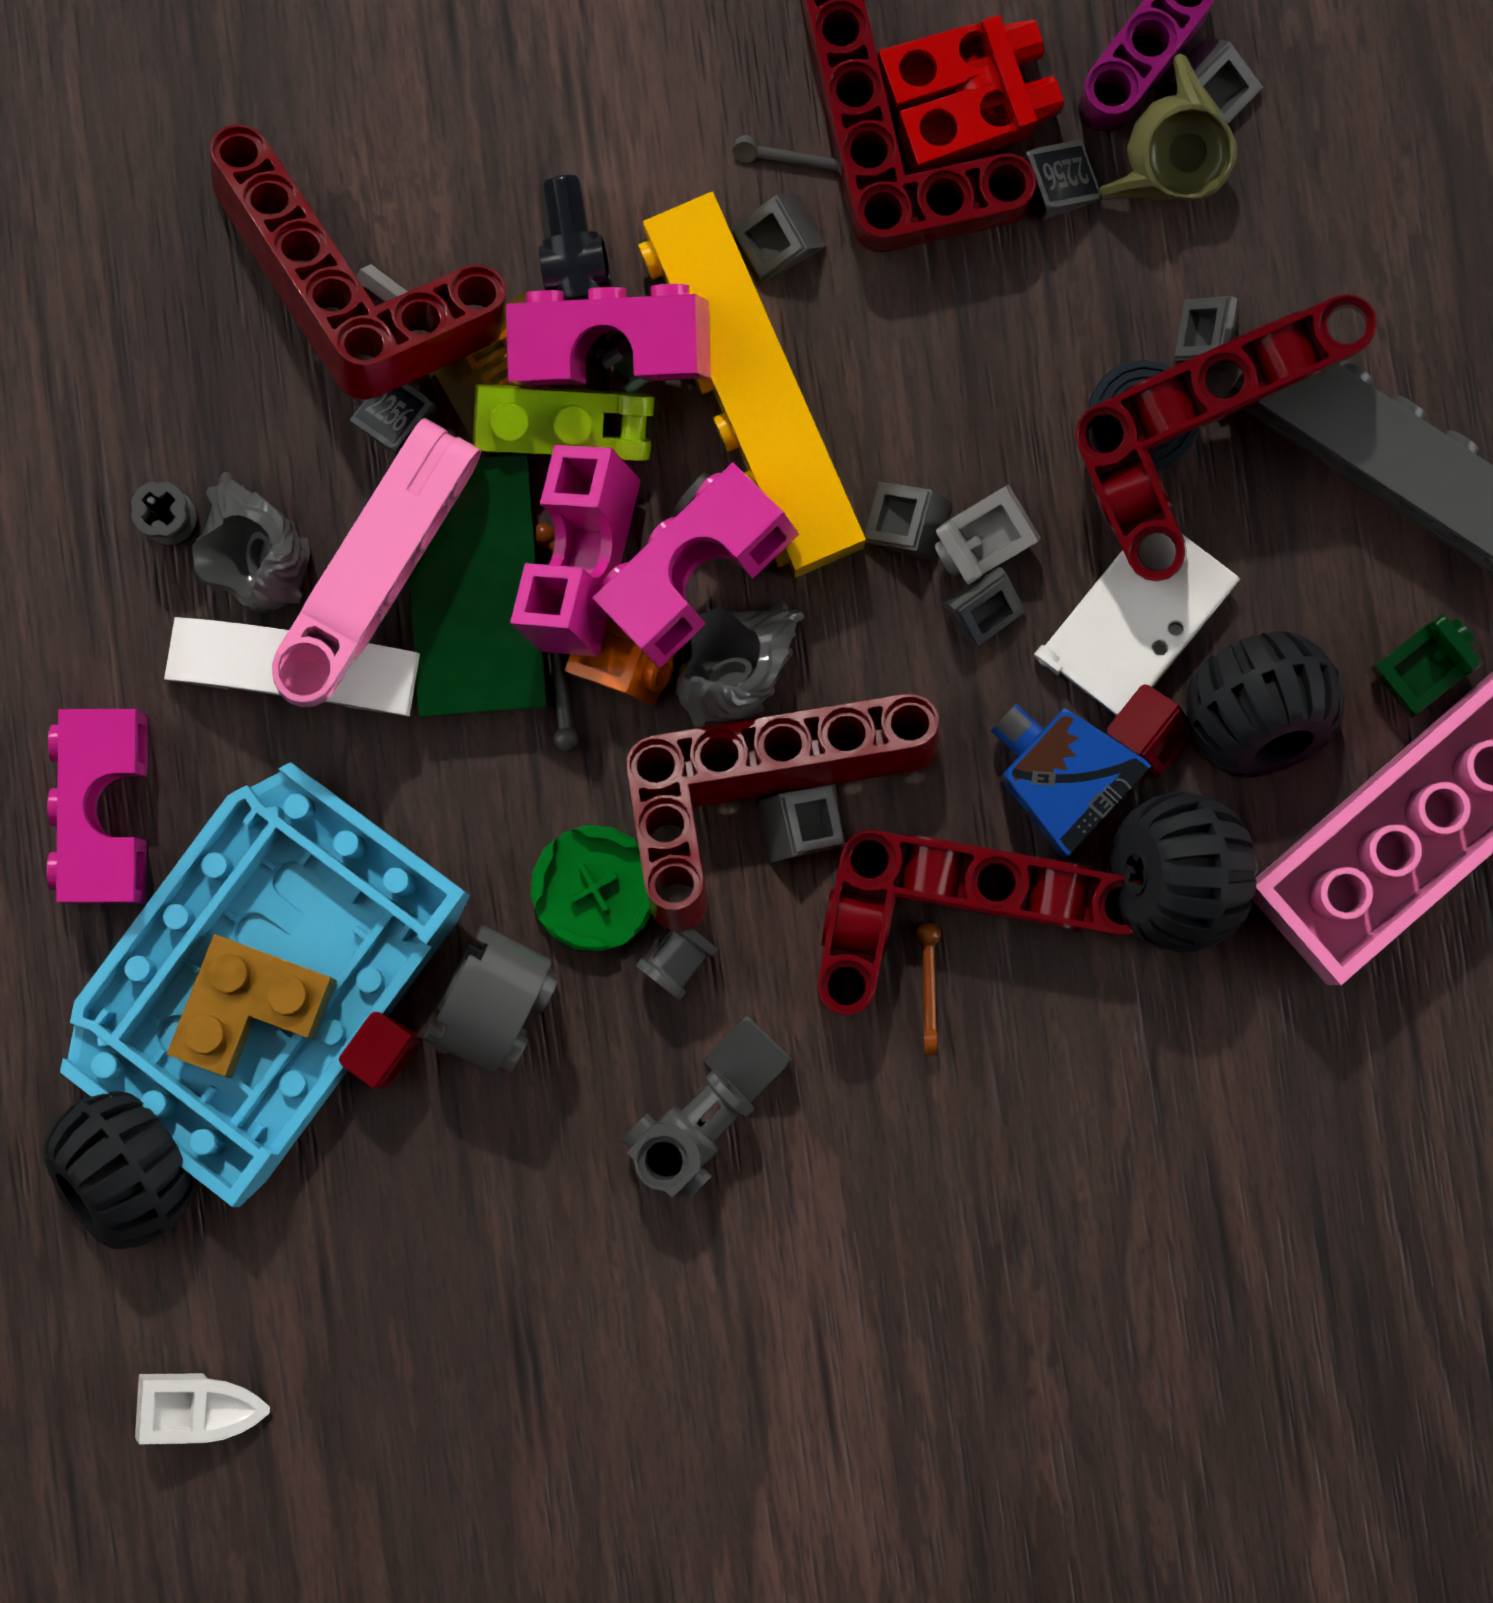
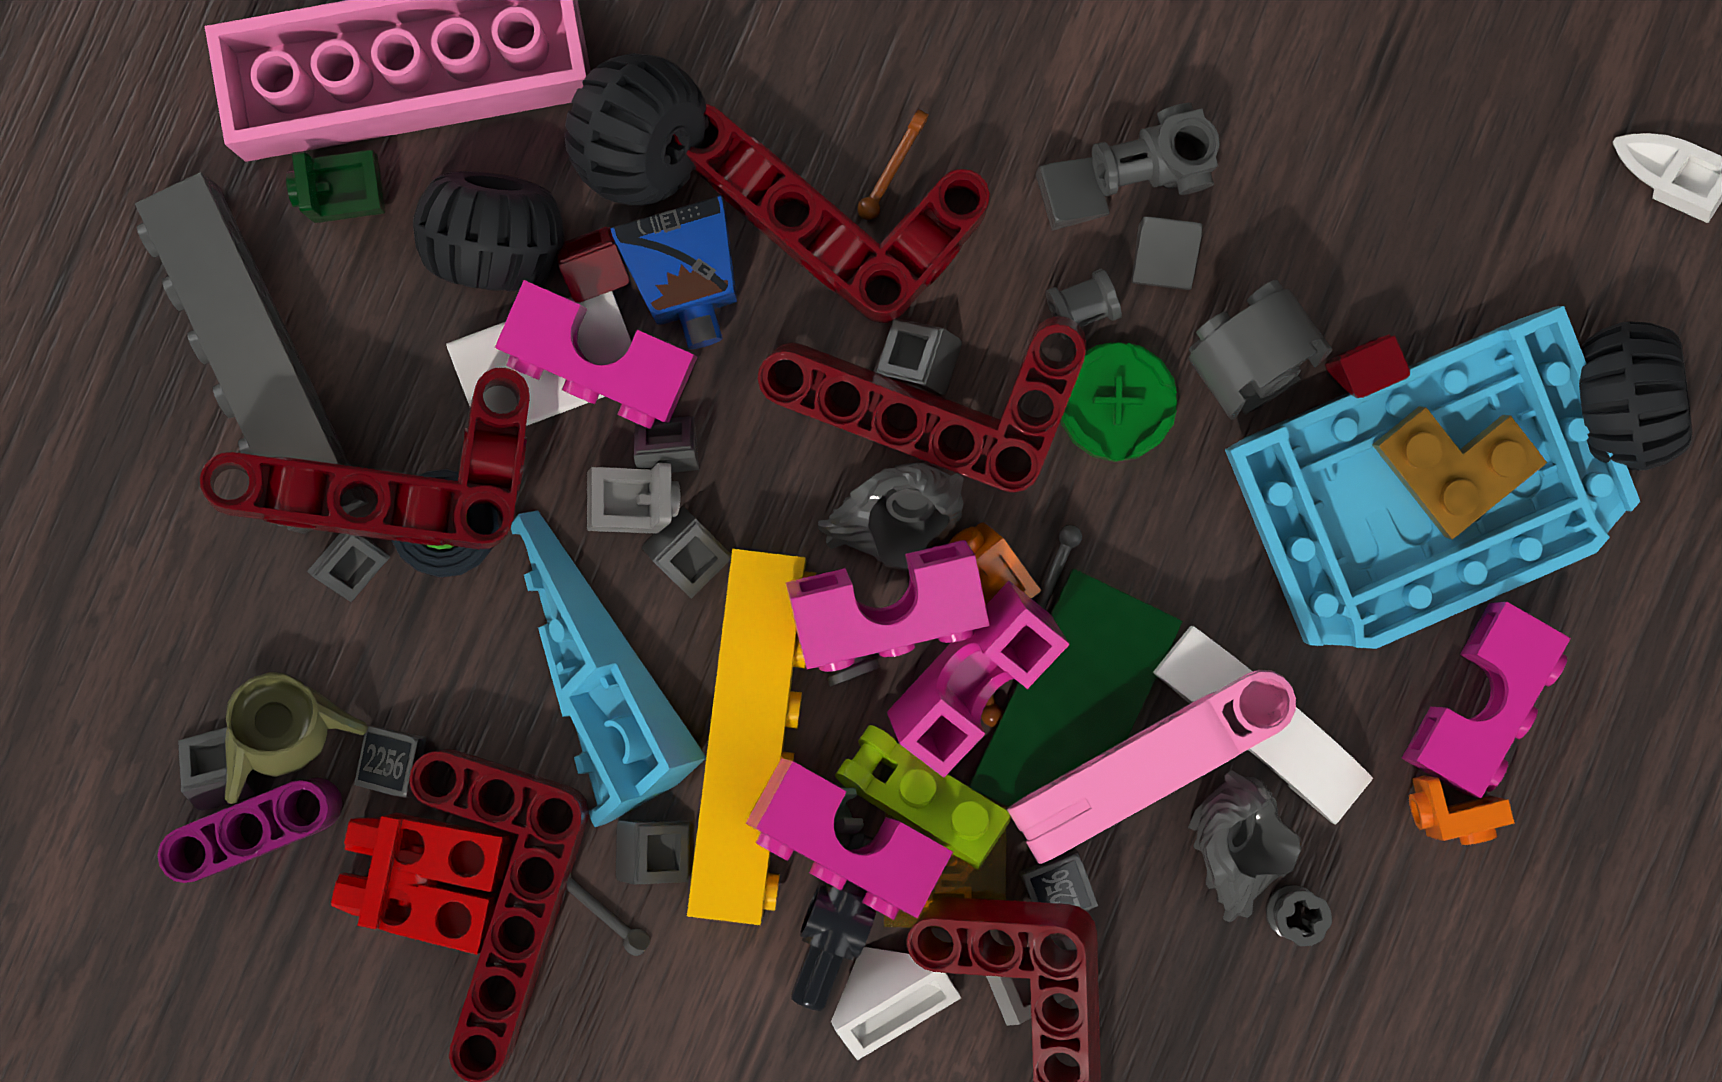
camera: 155 degrees left, 0 degrees up
(63, 684) = (1470, 820): none -> orange bracket
(492, 225) = (887, 998): none -> white slope
(627, 1051) = (1166, 252): none -> dark grey slope
(876, 336) = (624, 722): none -> medium azure wedge
(1149, 629) = (544, 336): none -> dark pink arch

